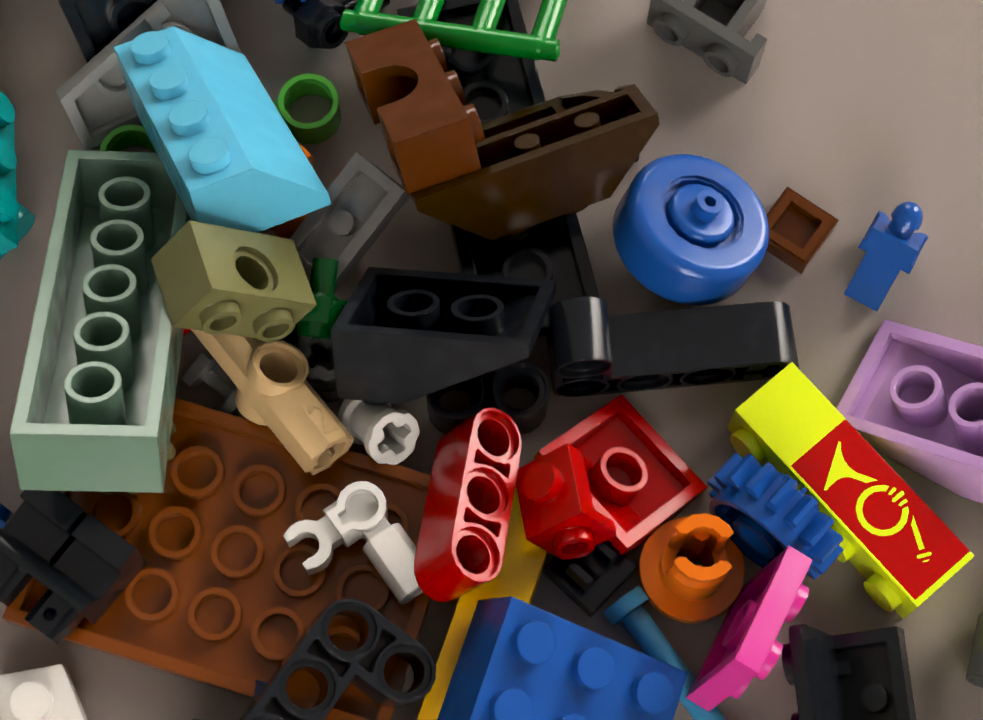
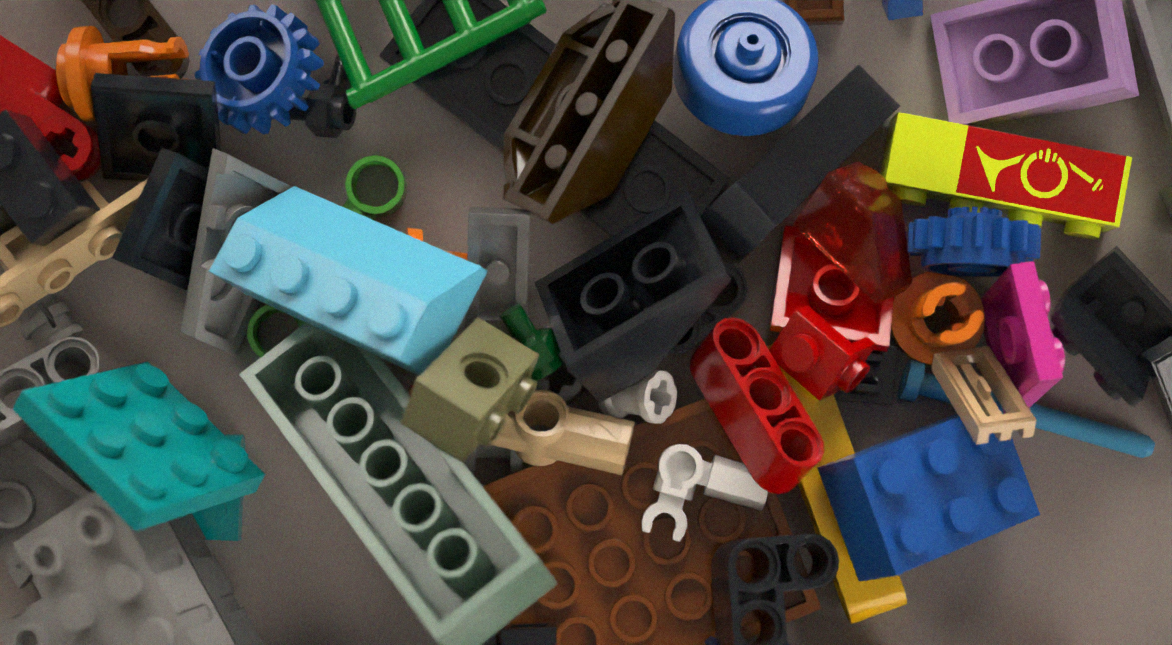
camera: 40 degrees left, 15 degrees up
(418, 105) = (512, 156): reddish brown arch -> none
(651, 663) = (973, 398): none -> tan tile
(681, 433) = (860, 230): none -> clear red slope

